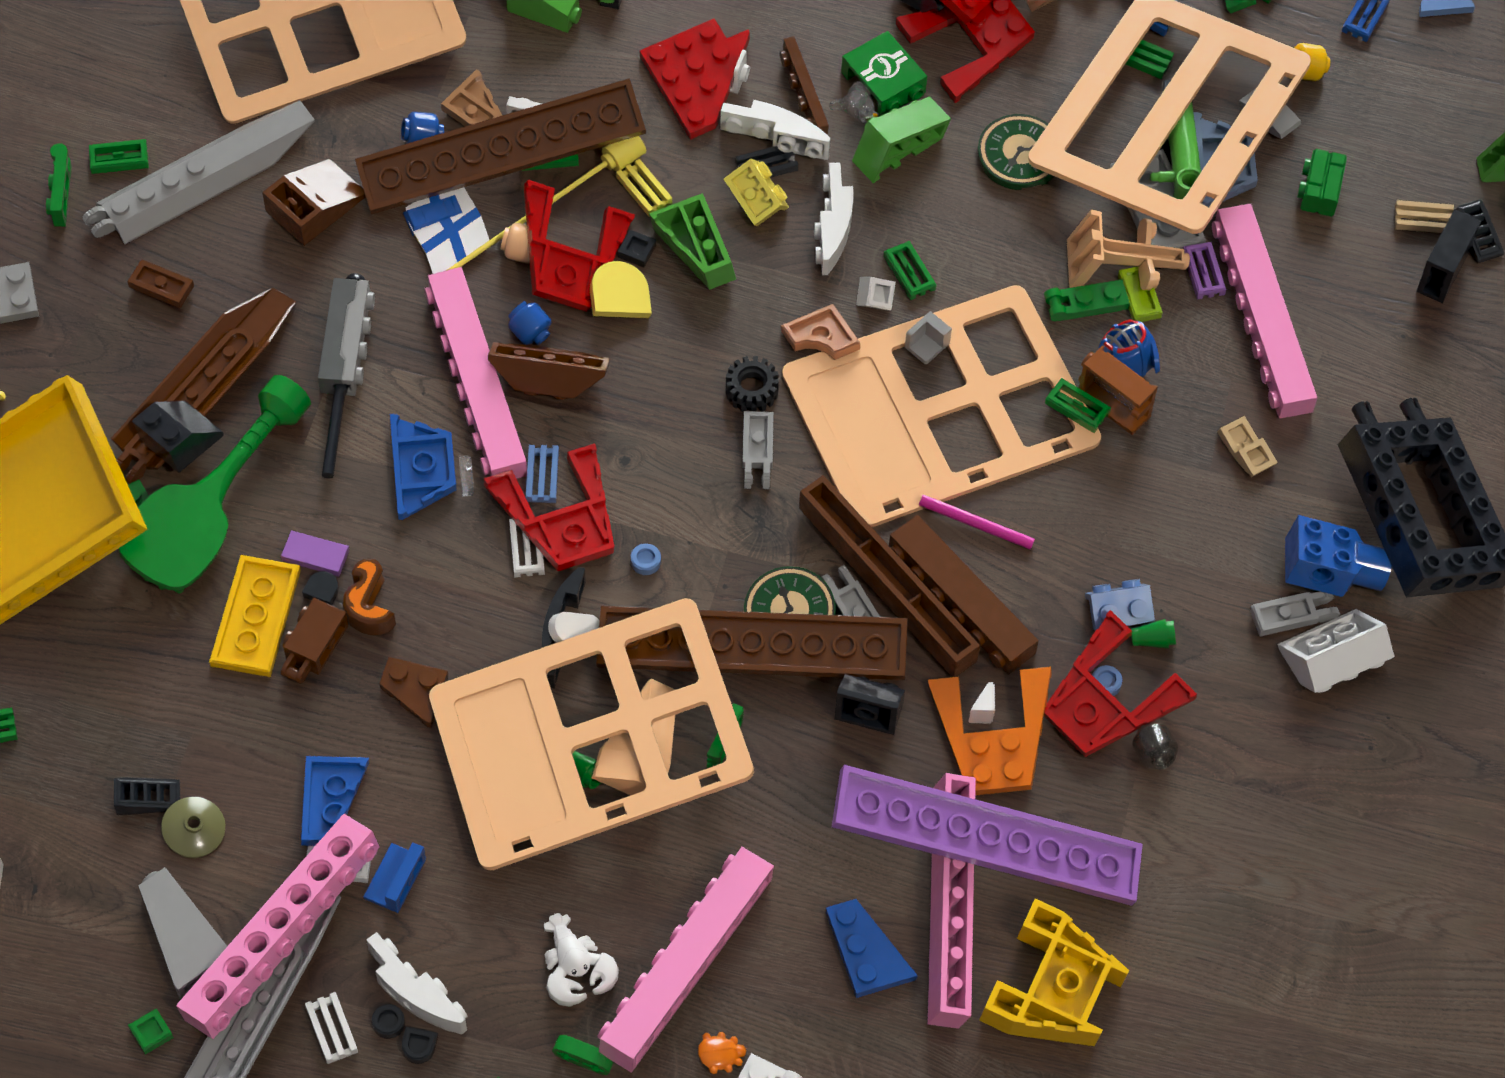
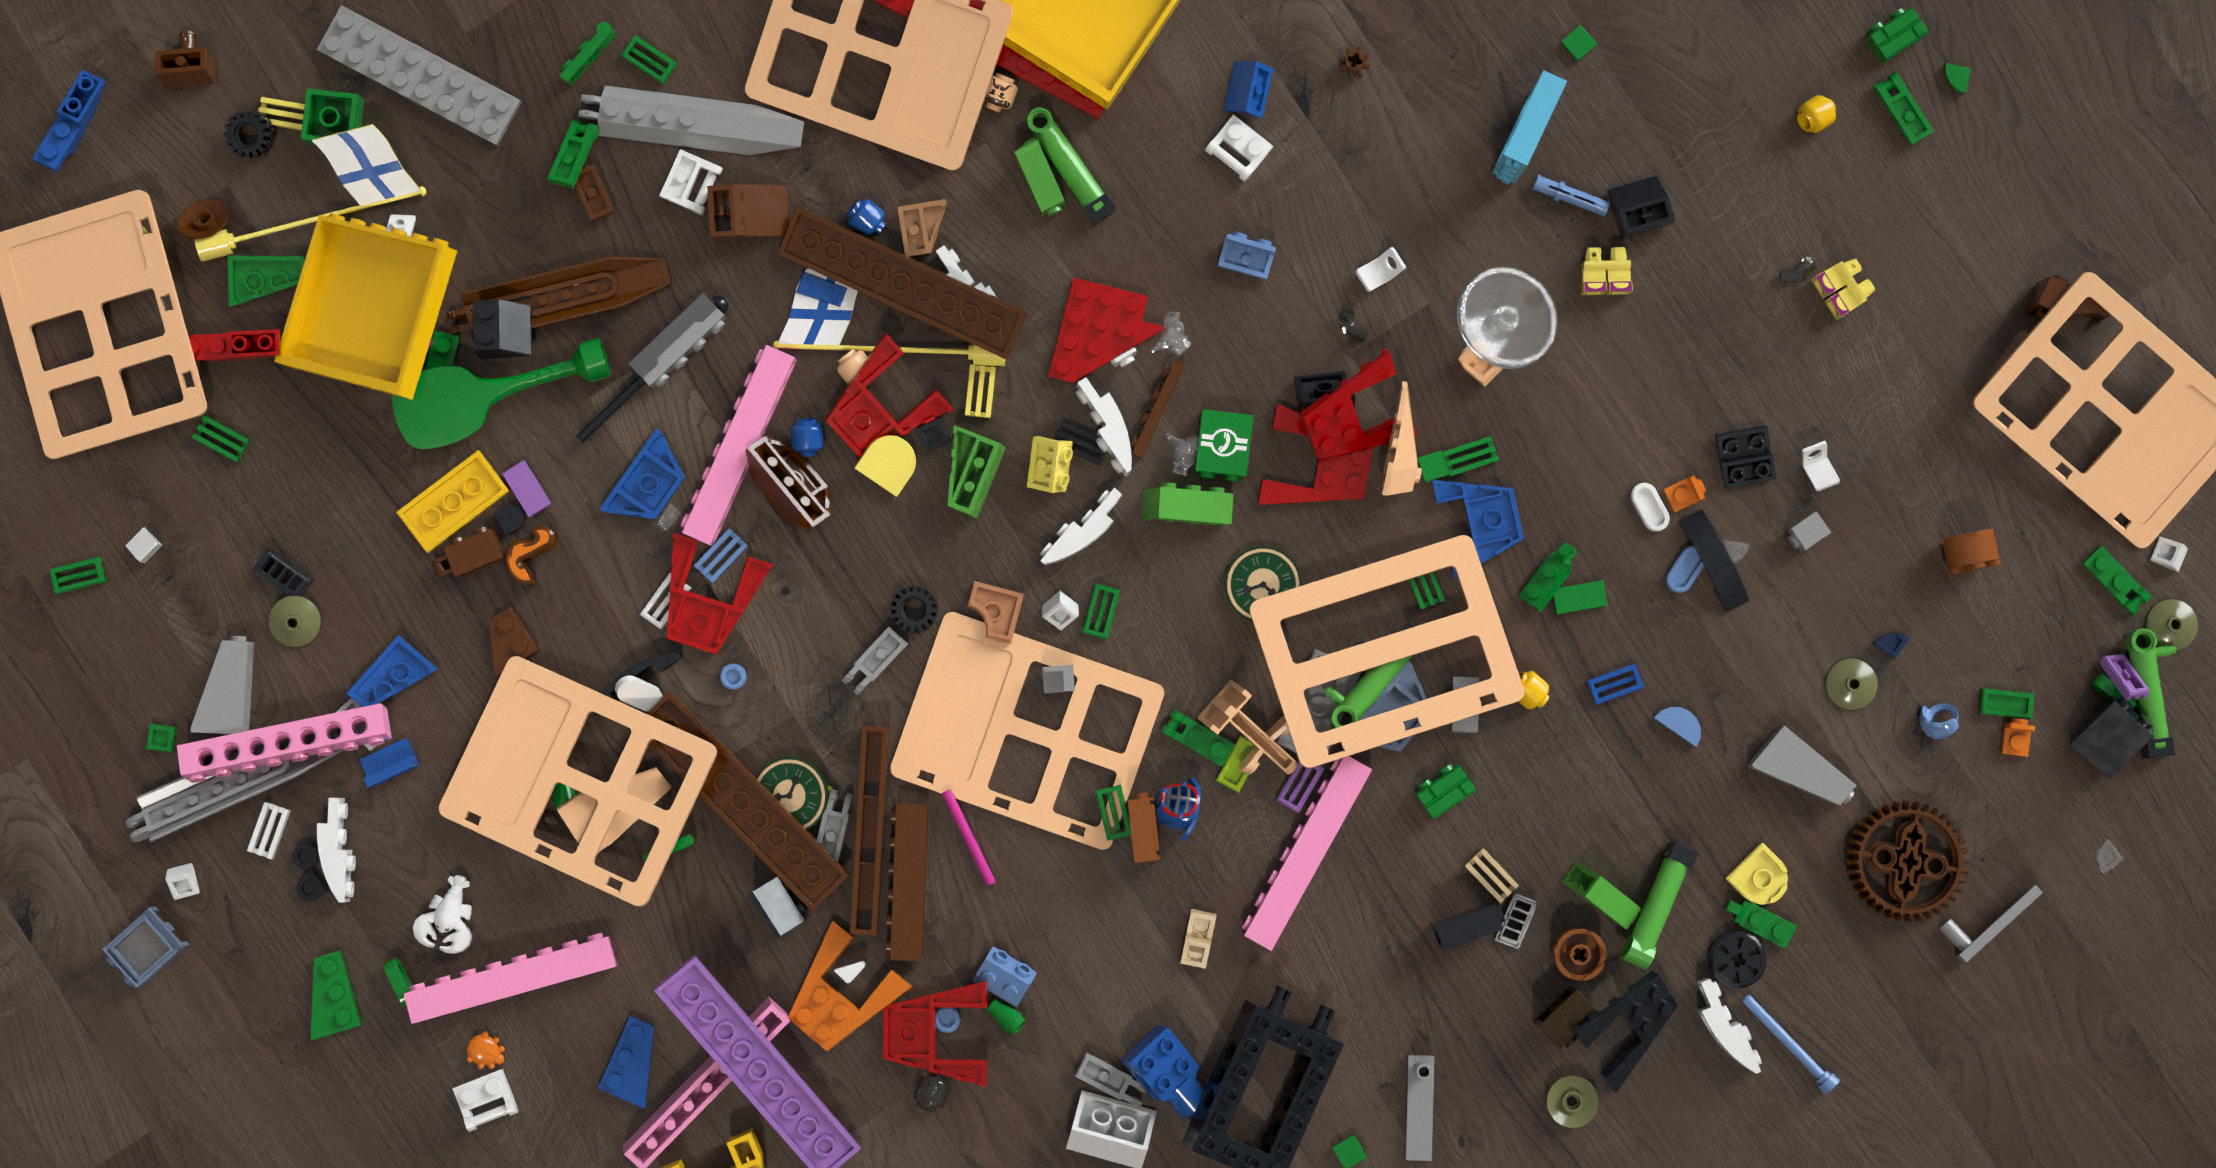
camera: 45 degrees right, 25 degrees up
(117, 263) = (573, 154): none -> green plate
(233, 218) = (683, 177): none -> white plate
(763, 31) = (1172, 335): none -> clear animal

